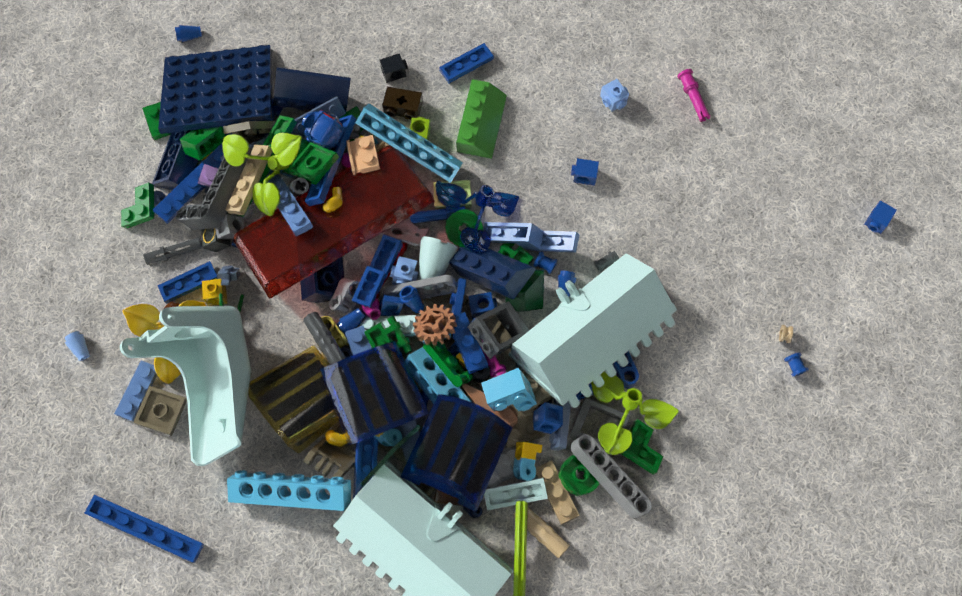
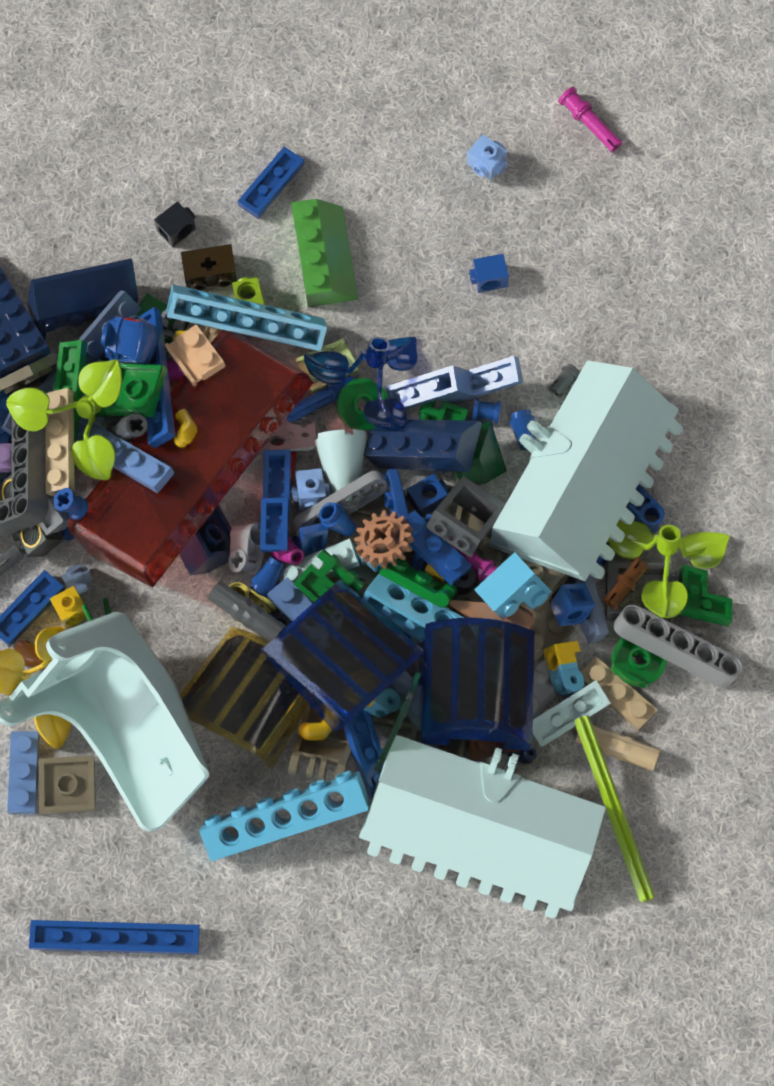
camera: 20 degrees left, 0 degrees up
(240, 225) = (73, 505): none -> blue bush
(591, 418) = (626, 583): none -> reddish brown pin

